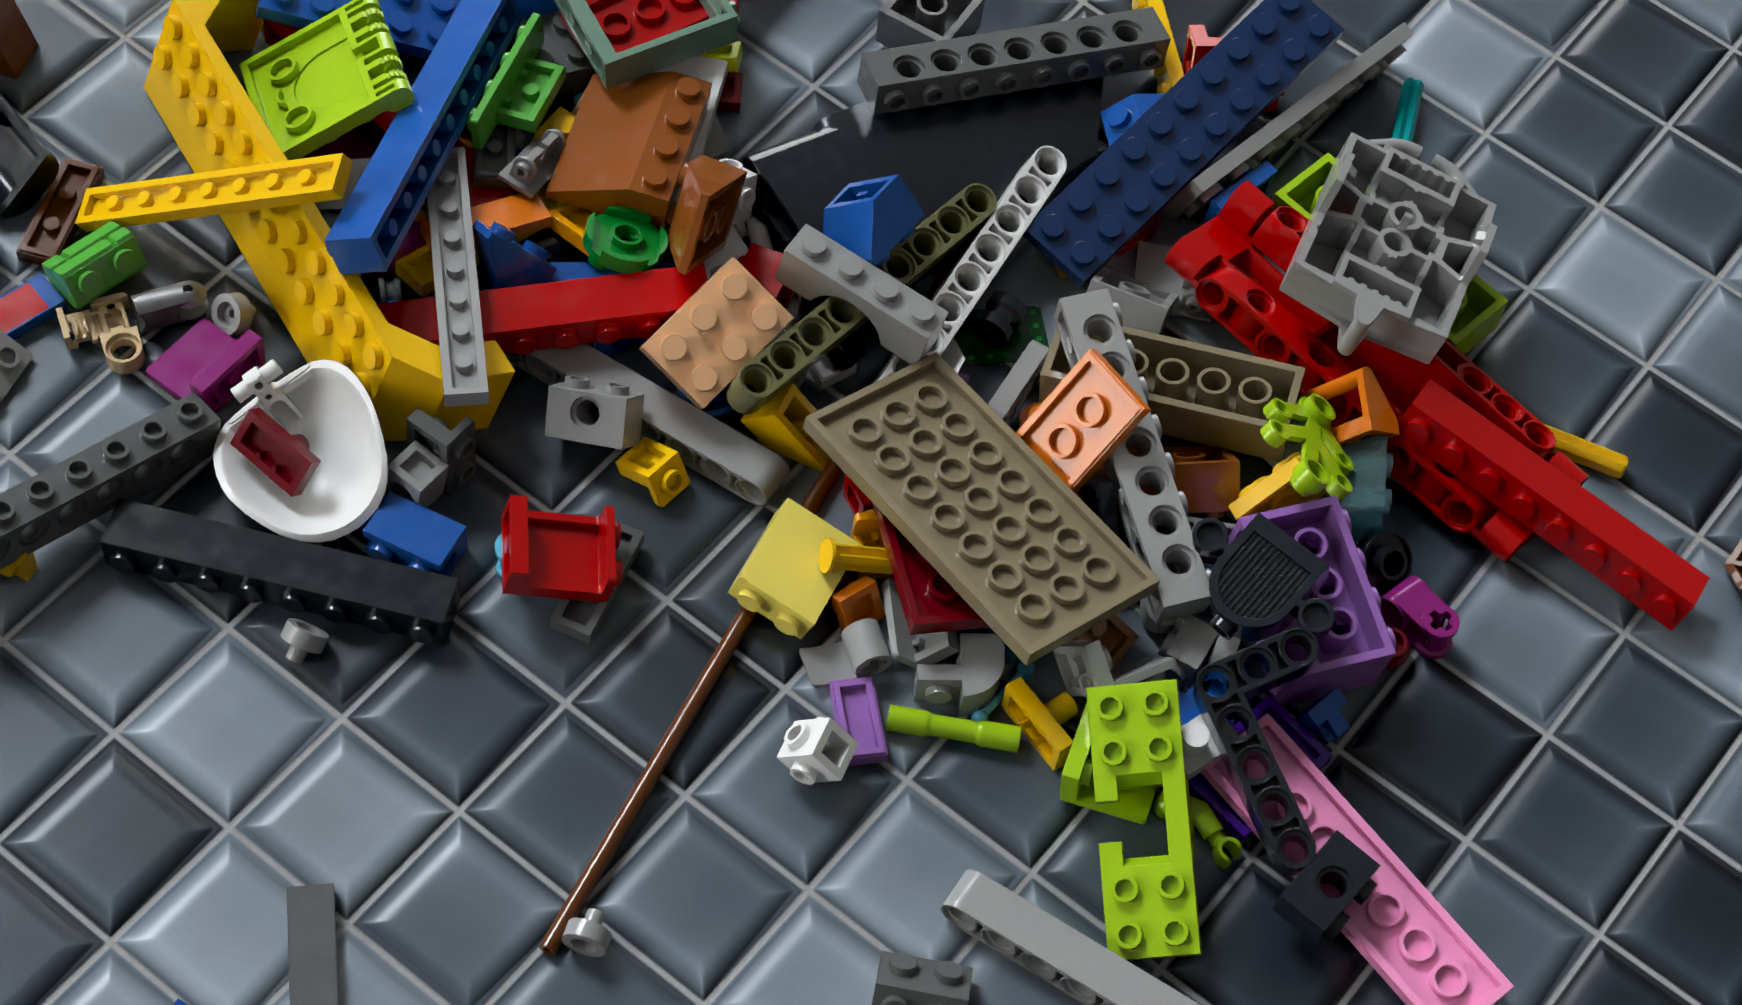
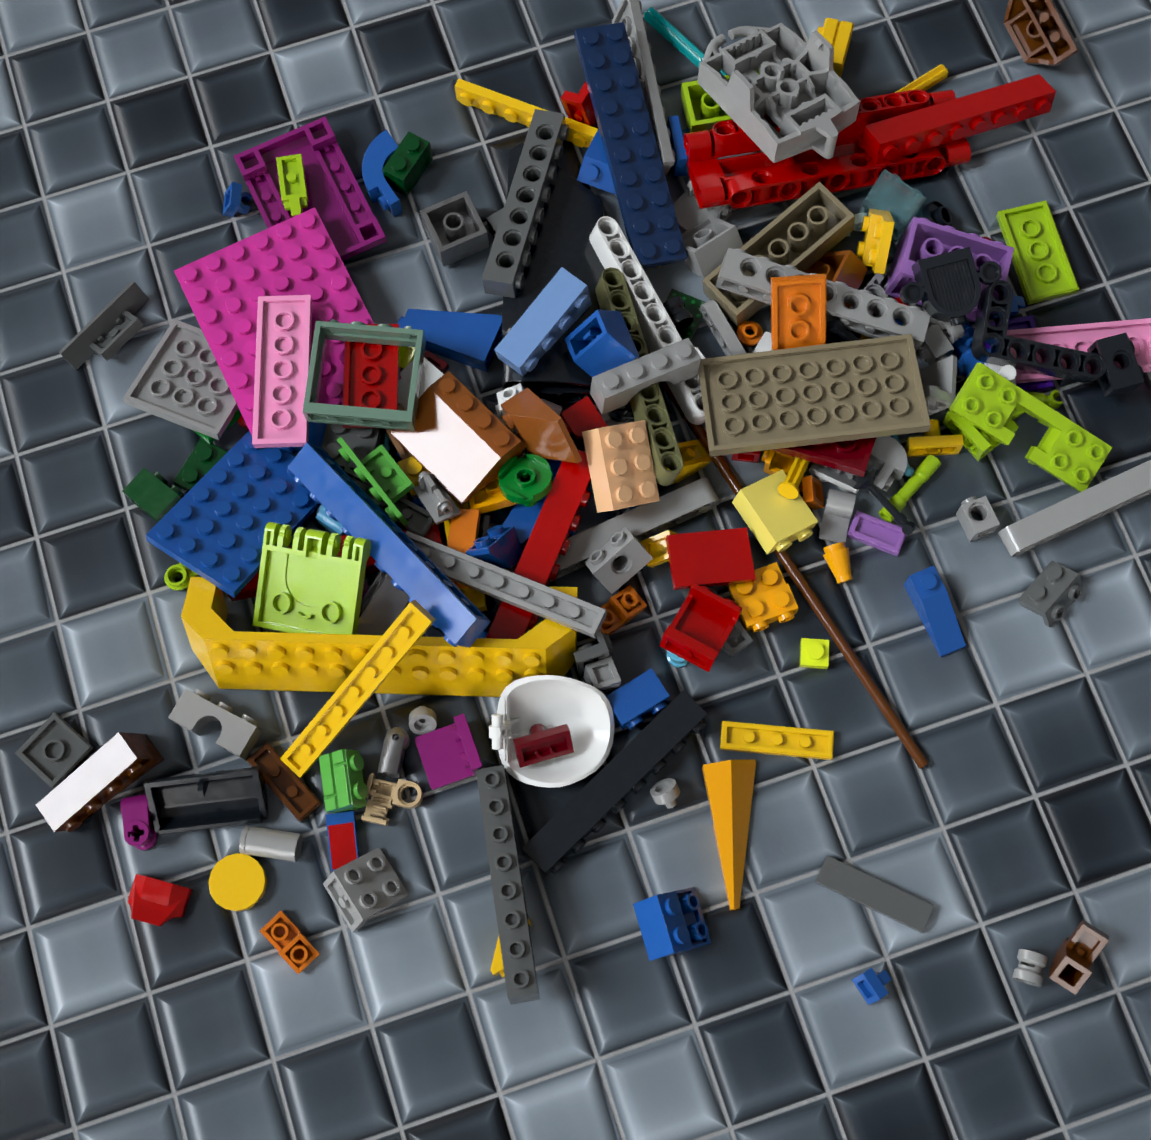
camera: 45 degrees left, 15 degrees up
(93, 128) = (196, 711): none -> light grey arch
(121, 735) = (672, 923): none -> blue slope
(341, 718) = (730, 800): none -> light orange wedge
(467, 744) = (777, 740): none -> yellow tile
(529, 464) = (621, 609): none -> orange slope
(588, 934) = (930, 739): light grey tile -> none
(624, 727) = (814, 653): none -> neon yellow plate
(662, 622) = (765, 599): none -> light orange plate
(670, 519) = (710, 558): none -> red tile
(781, 687) = (838, 560): none -> light orange cone
(782, 84) = (458, 335): none -> blue slope
(788, 845) = (935, 610): none -> blue slope
(817, 750) = (892, 564): white brick -> none
(851, 145) = (544, 322): none -> medium blue wedge
(914, 650) = (867, 482): none -> black piece
(960, 849) = (973, 528): none -> light grey brick
(1316, 438) = (878, 205): lime plant -> none
(1377, 413) = (875, 170): orange tile -> none
(1420, 613) = (977, 221): magenta piece -> none
(1440, 722) = (1037, 252): none -> lime tile
(1541, 313) = (839, 36): none -> yellow brick

